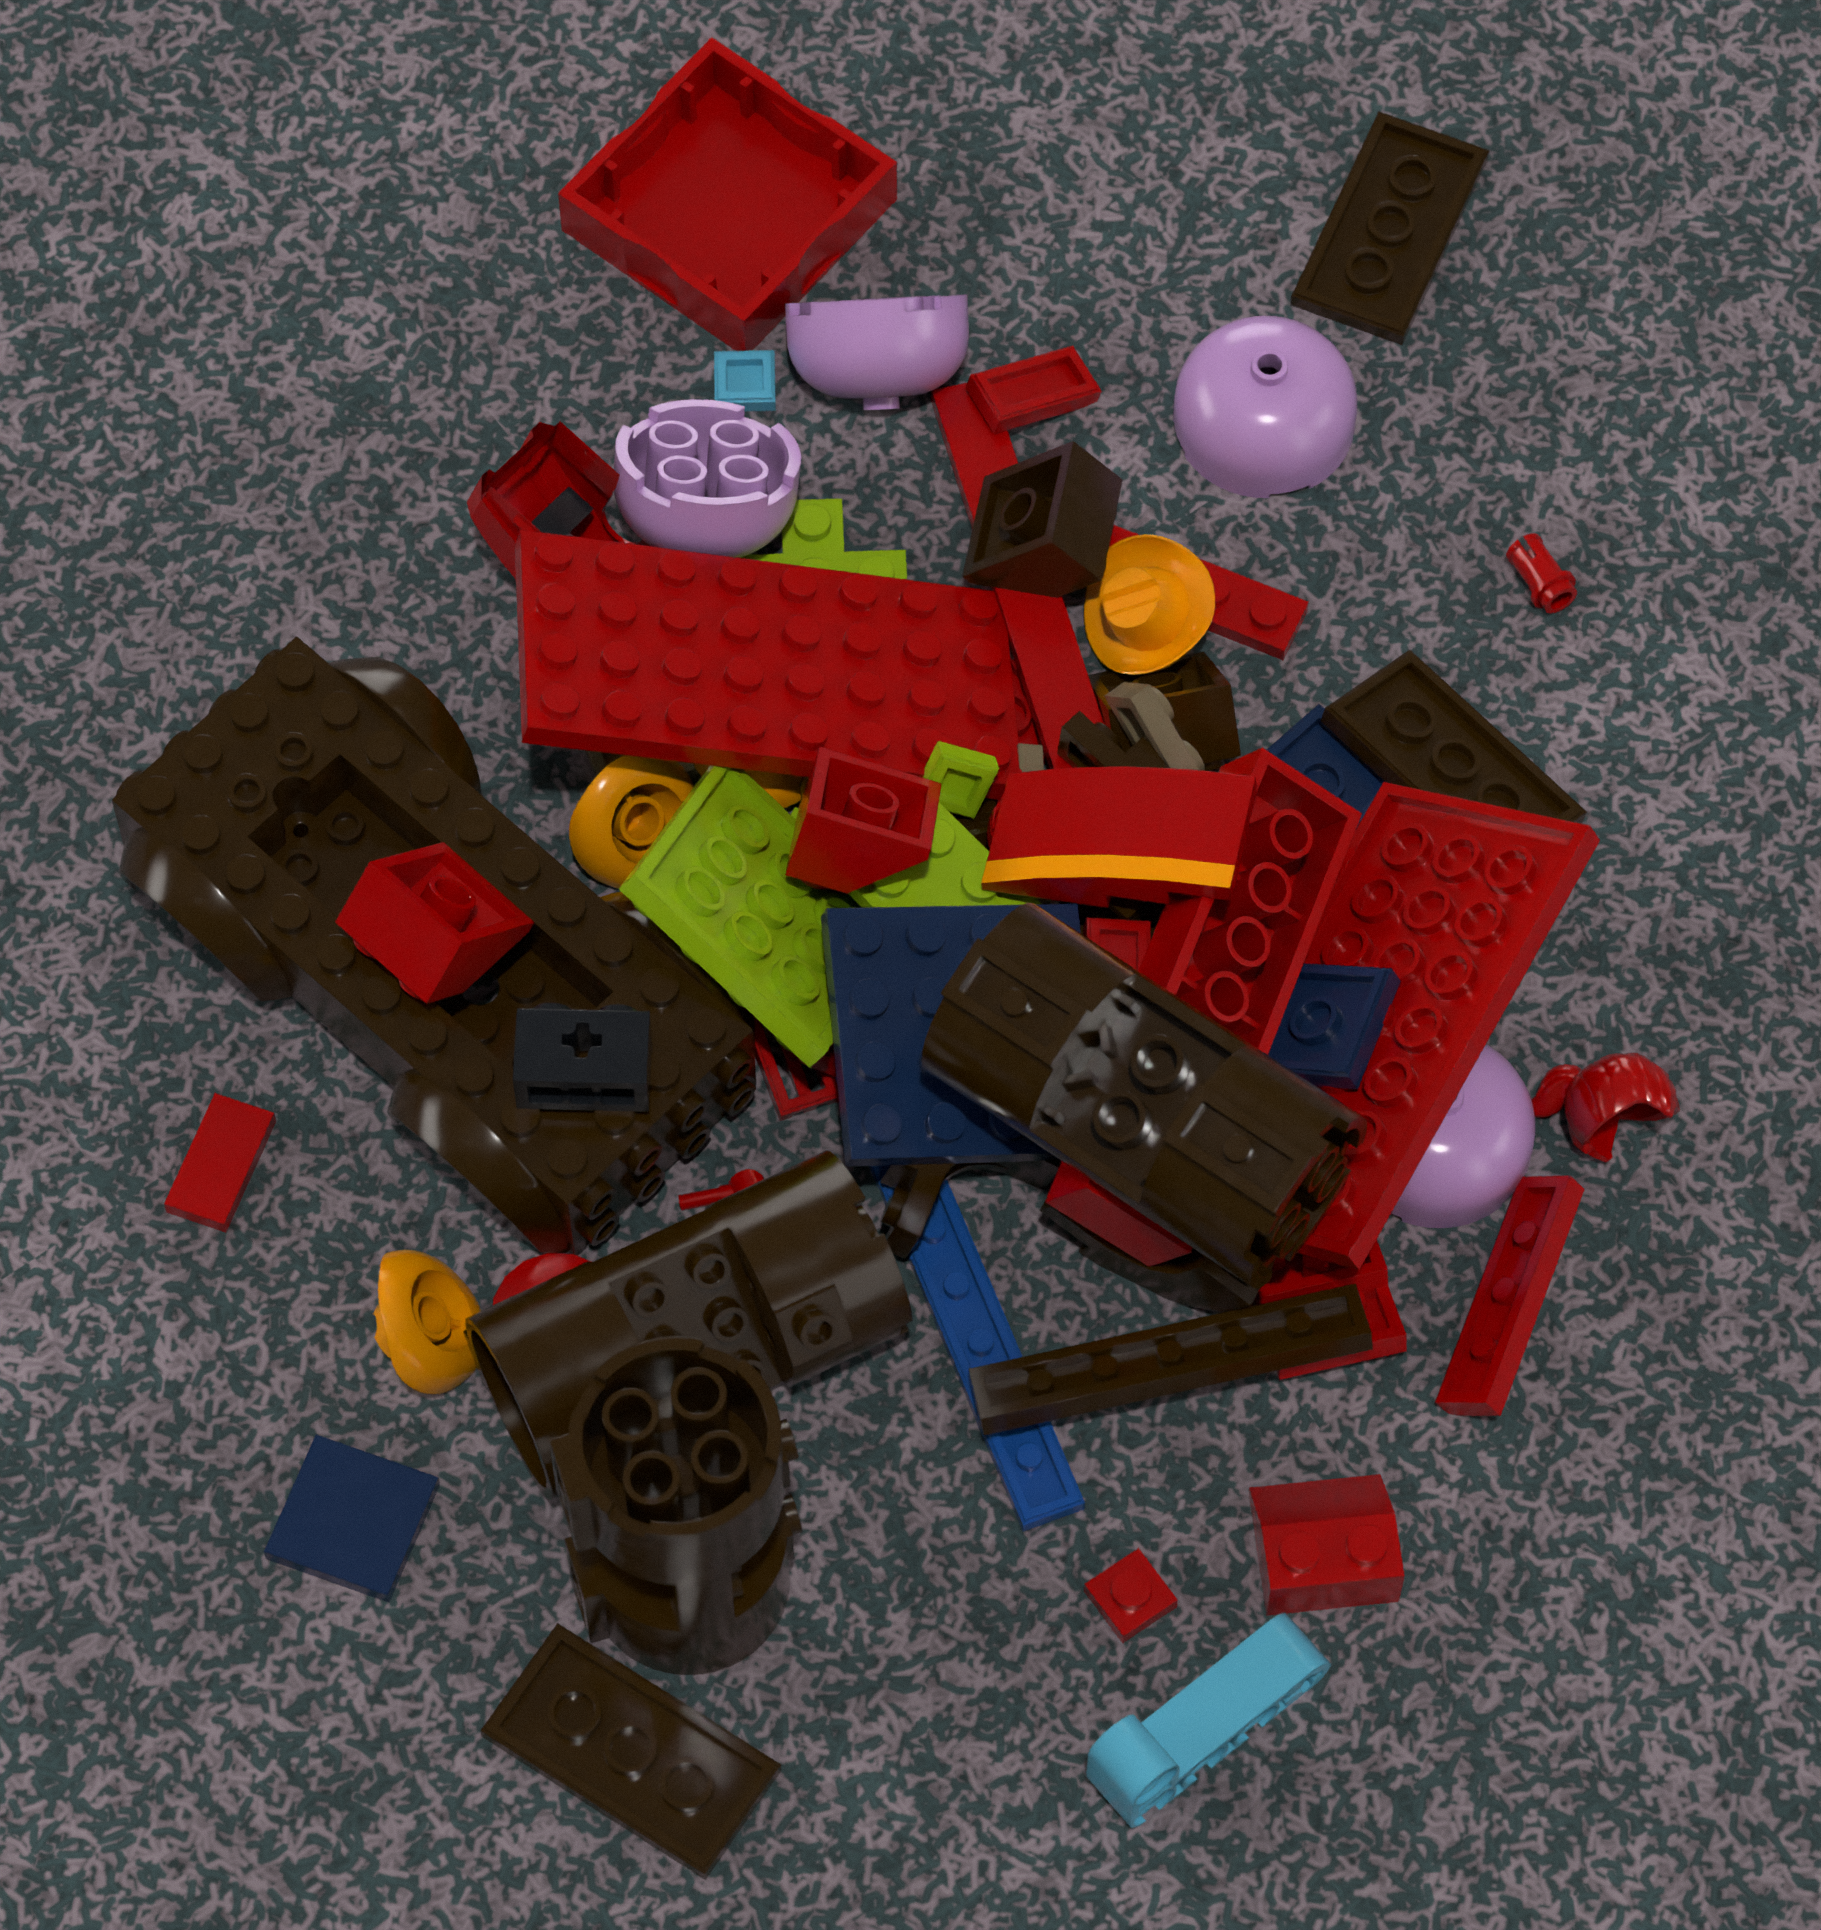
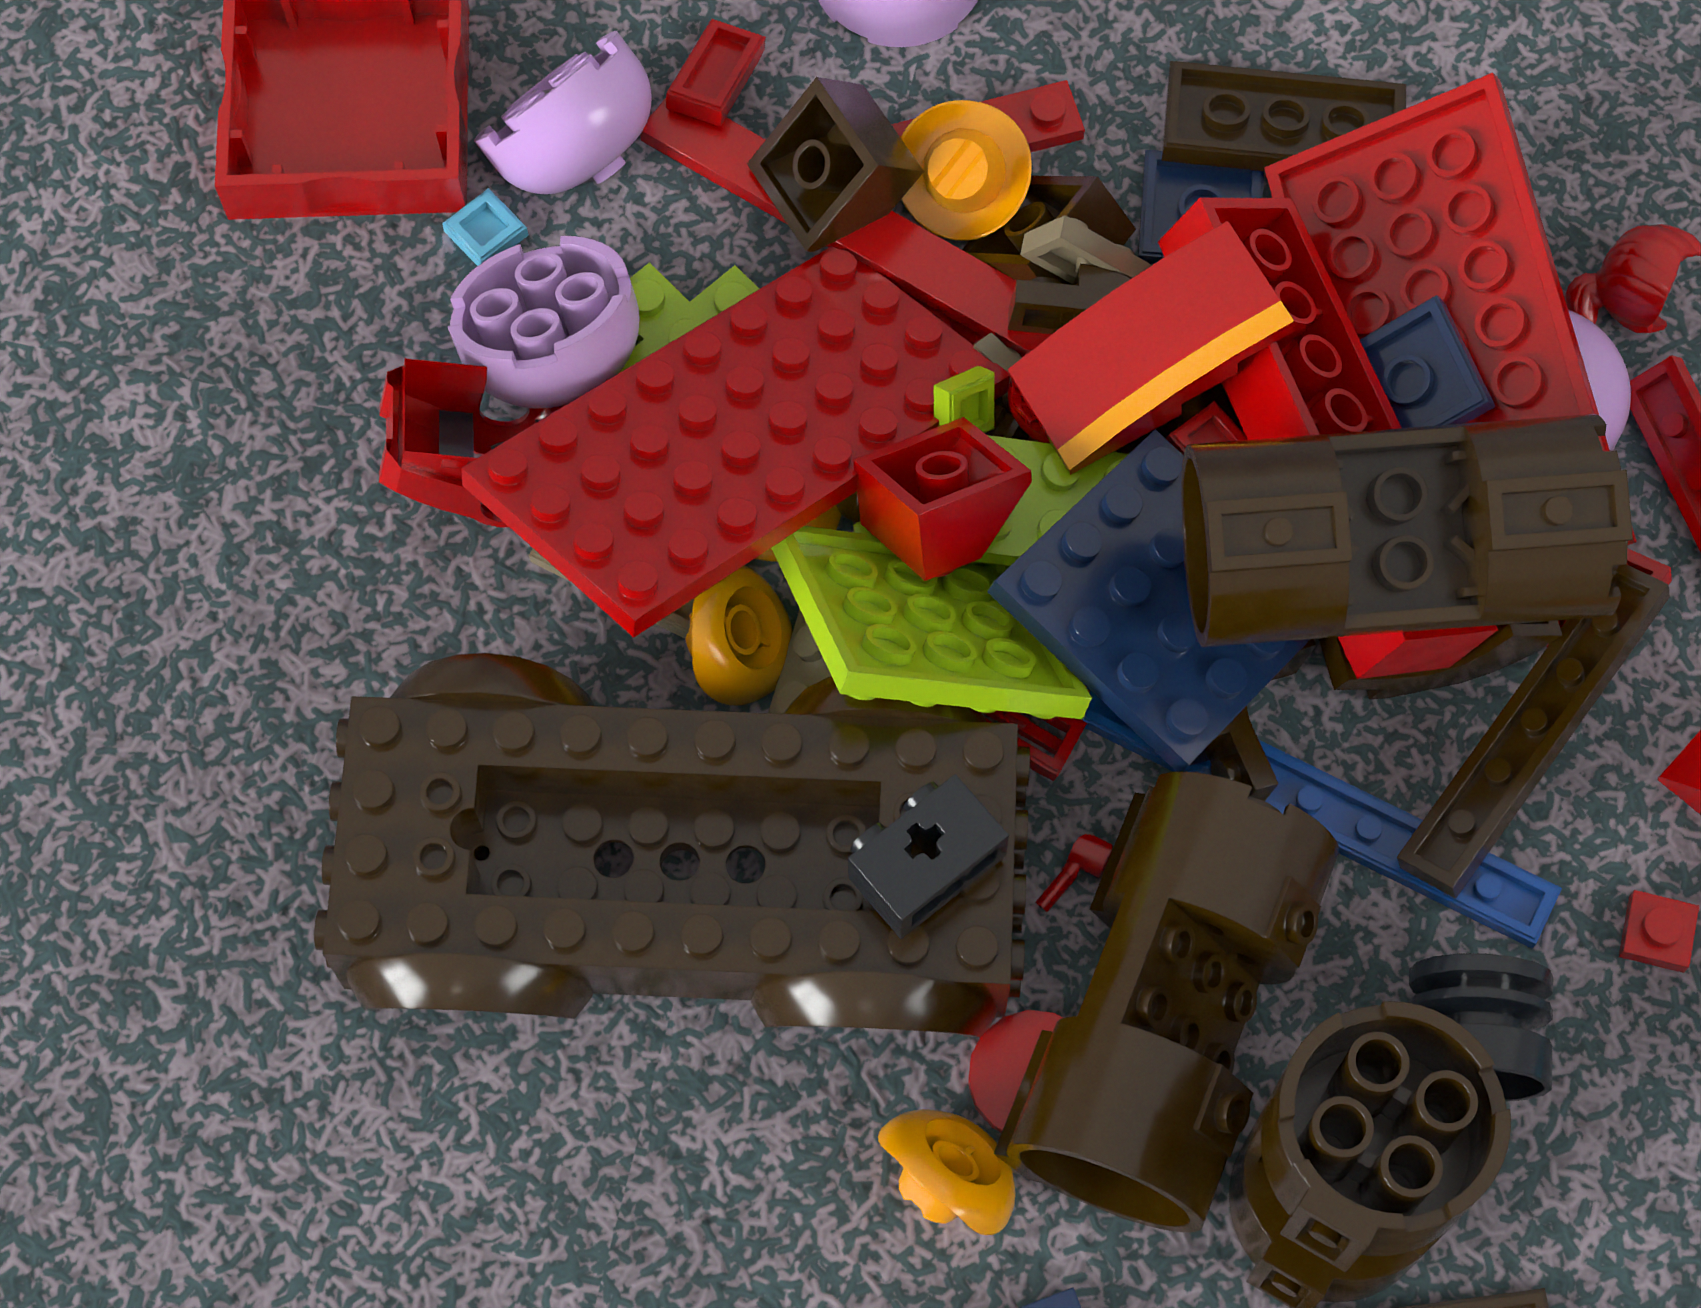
camera: 40 degrees left, 5 degrees up
(220, 1162) = (655, 1177): red tile -> none
(431, 921) = (691, 842): red slope -> none
(906, 1534) = (1499, 1005): none -> black wheel

